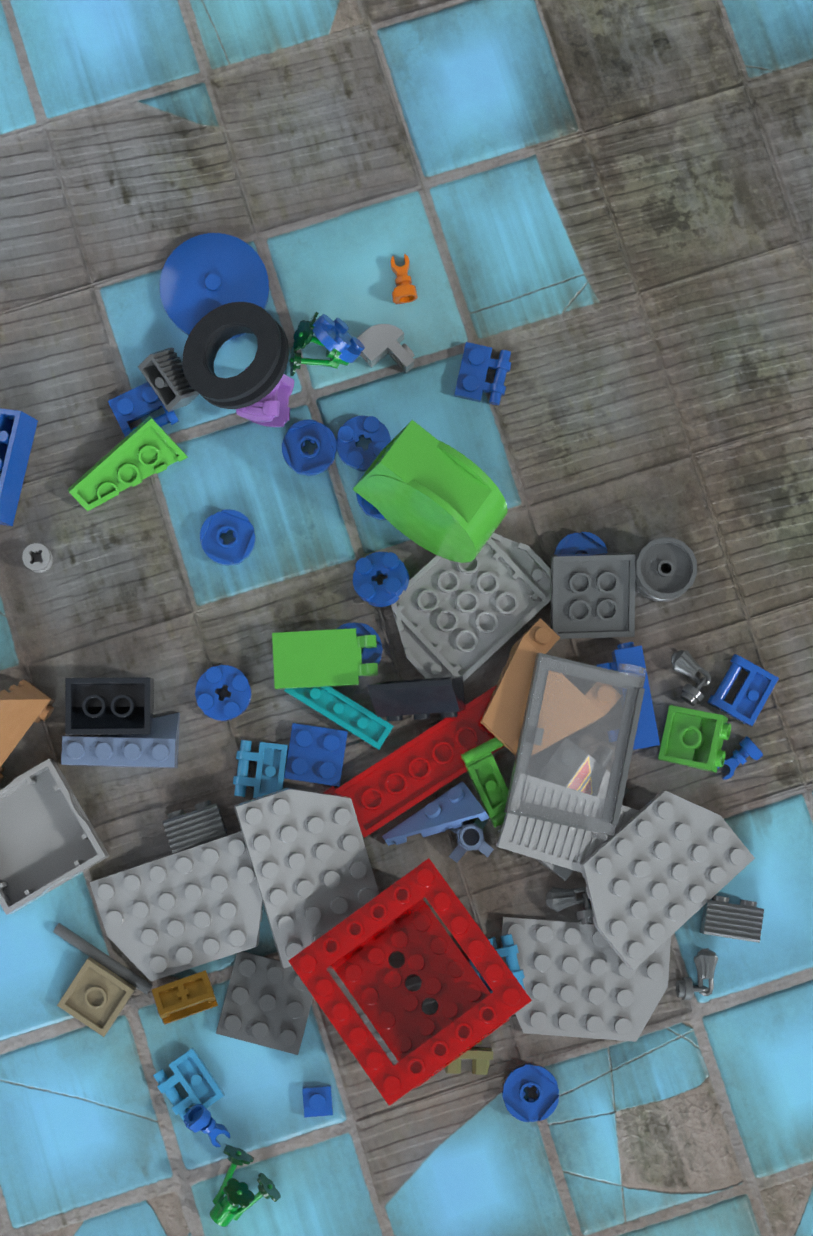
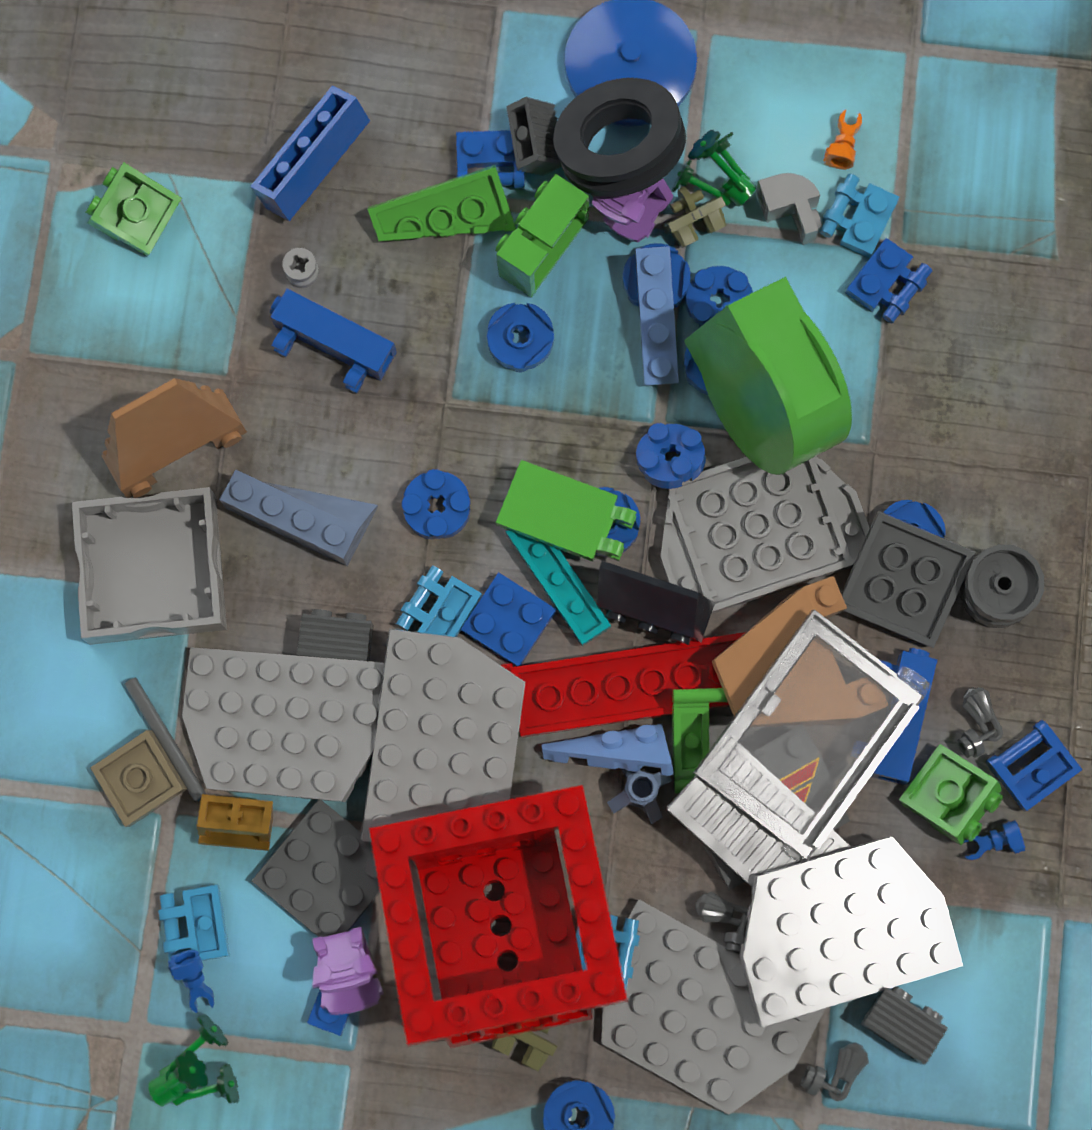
camera: 35 degrees right, 5 degrees down
(85, 599) = (333, 335): none -> blue brick
(108, 706) = (303, 459): black slope -> none
(209, 454) = (542, 234): none -> bright green piece
(317, 1069) = (345, 973): none -> medium lavender piece
(323, 478) = (656, 315): none -> medium blue plate
(324, 380) = (709, 212): none -> olive hips
(335, 336) = (742, 162): blue plate -> none
(447, 333) = (869, 219): none -> dark azure plate

